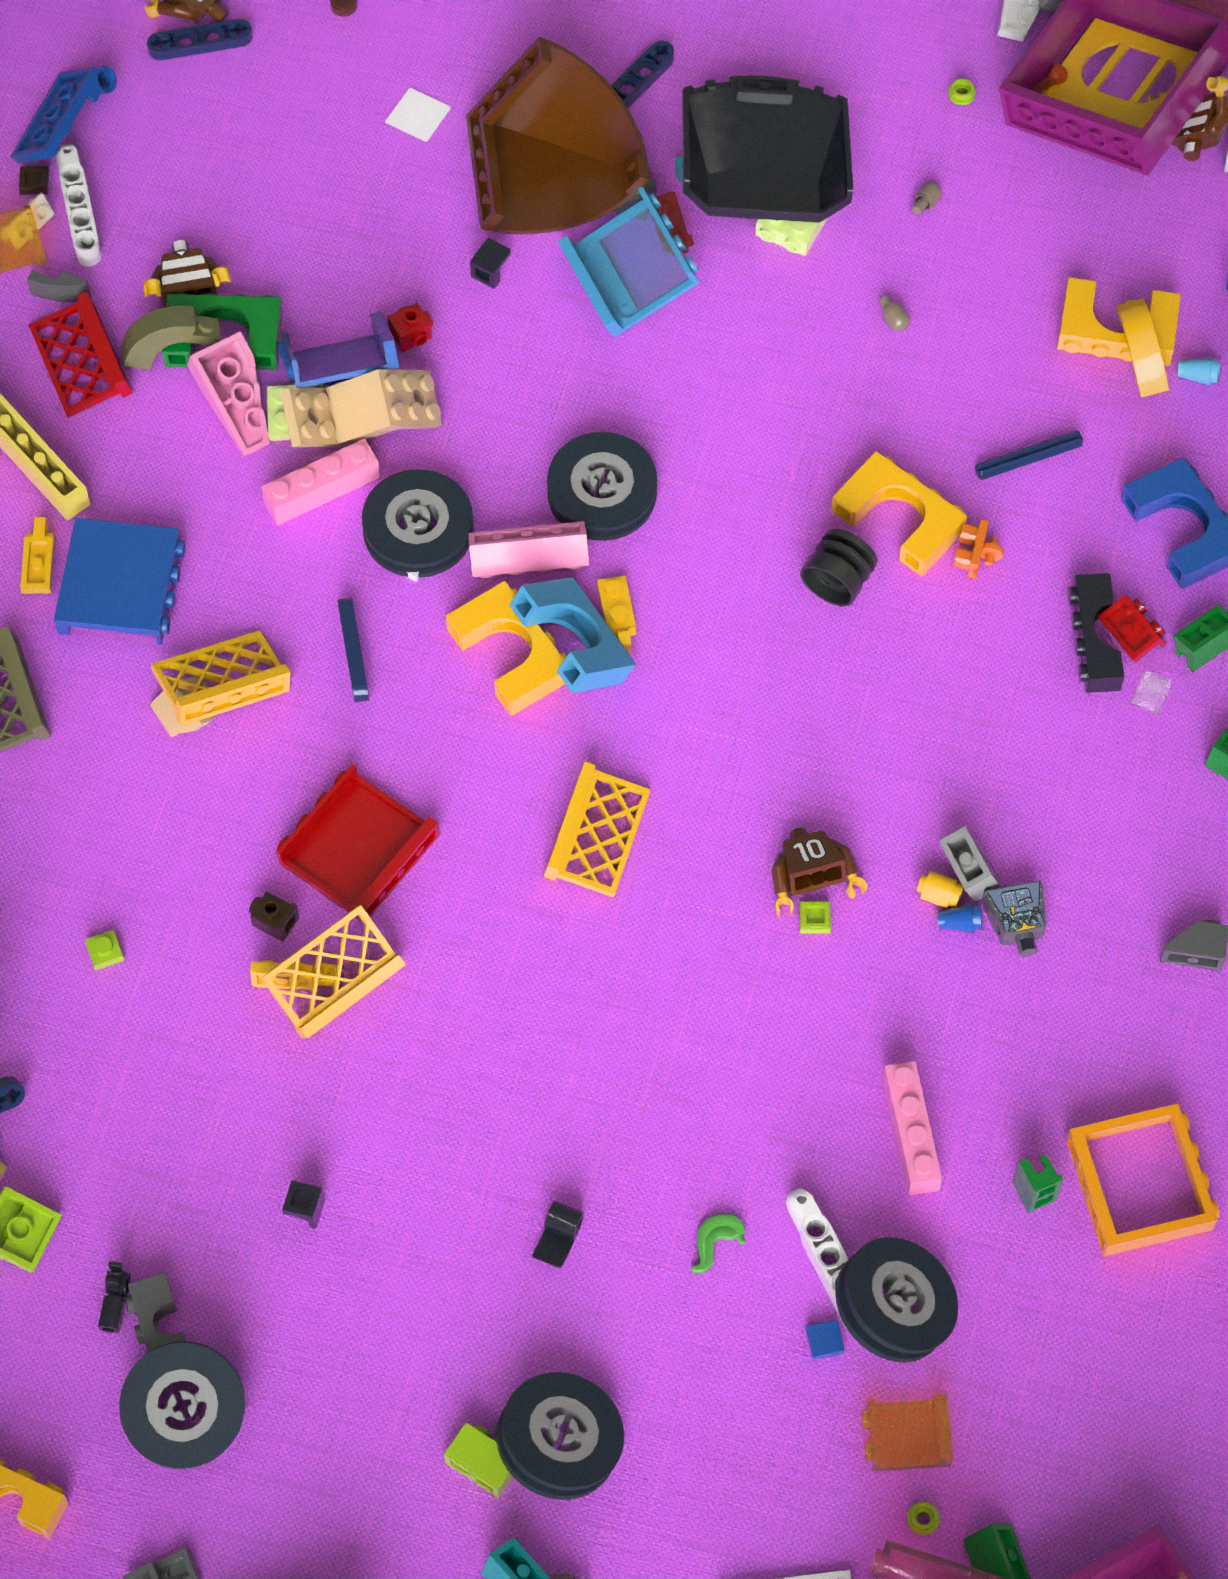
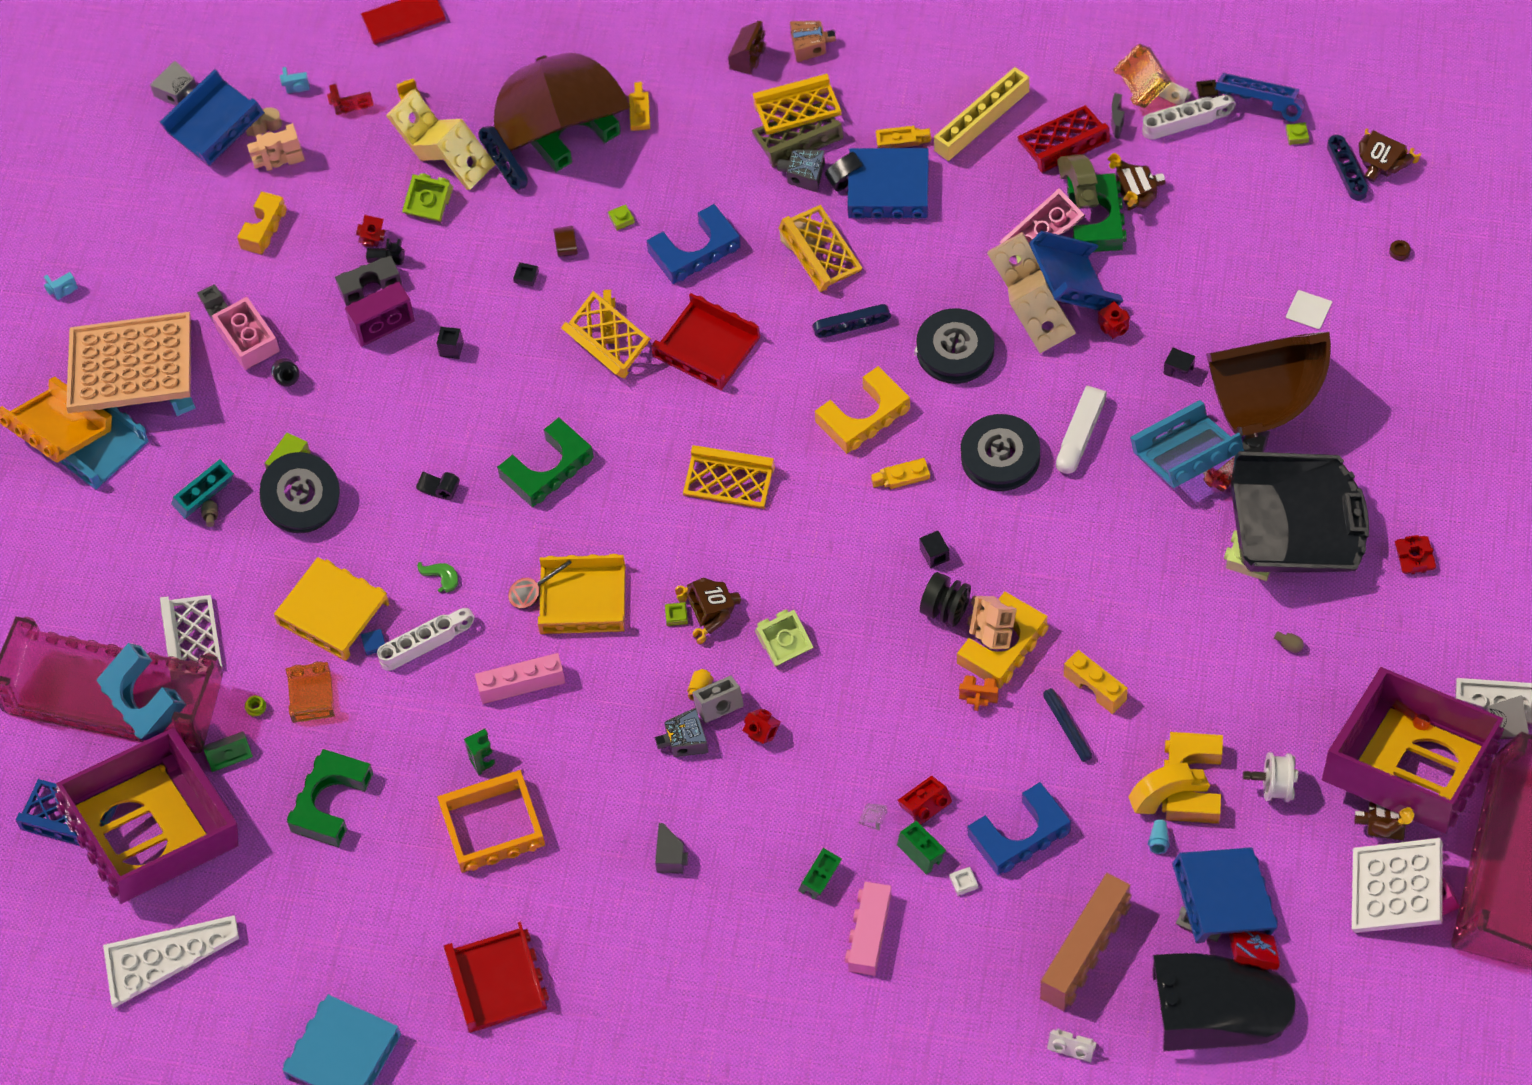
camera: 90 degrees right, 5 degrees down
(69, 1317) = (370, 231): none -> red brick
(70, 688) = (804, 168): none -> dark grey torso
(89, 632) = (838, 172): none -> black panel
(131, 87) = (1297, 133): none -> lime plate
(139, 1026) = (565, 241): none -> reddish brown panel
(146, 1421) = (326, 304): black wheel -> none
(179, 809) = (680, 264): none -> blue arch
(190, 1089) = (526, 274): none -> black plate
(237, 1304) = (380, 314): none -> magenta brick
(237, 1520) = (245, 333): none -> bright pink brick
(277, 923) = (650, 302): dark brown brick -> none
(320, 482) = (979, 284): bright pink brick -> none
(322, 1459) = (285, 372): none -> black head
(528, 549) = (939, 410): bright pink brick -> none
(532, 1036) = (534, 485): none -> green arch
(565, 603) = (898, 437): dark azure arch -> none
(576, 388) = (1080, 429): none -> white piece
(646, 60) = (1362, 444): dark blue beam -> none
(750, 579) = (934, 549): none -> black panel
(760, 1118) = (526, 591): none -> piece
(765, 1395) = (330, 607): none -> yellow panel
(774, 1041) = (584, 595): none -> yellow panel
(803, 42) = (1410, 563): none -> red piece
(872, 777) = (783, 637): none -> yellowish green plate
(884, 512) = (991, 621): none -> light nougat hips
(884, 1319) = (418, 668): black wheel -> none
(894, 314) = (1178, 627): dark tan cylinder -> none
(961, 918) = (679, 700): blue cone -> none
(962, 86) = (1395, 654): lime plate -> none
(986, 400) = (1084, 671): none -> yellow arch
(1014, 813) = (761, 726): none -> red brick
(1101, 664) = (890, 776): black arch -> none
(1120, 1442) = (328, 770): none -> green arch
(1132, 226) = (1277, 777): none -> white wheel

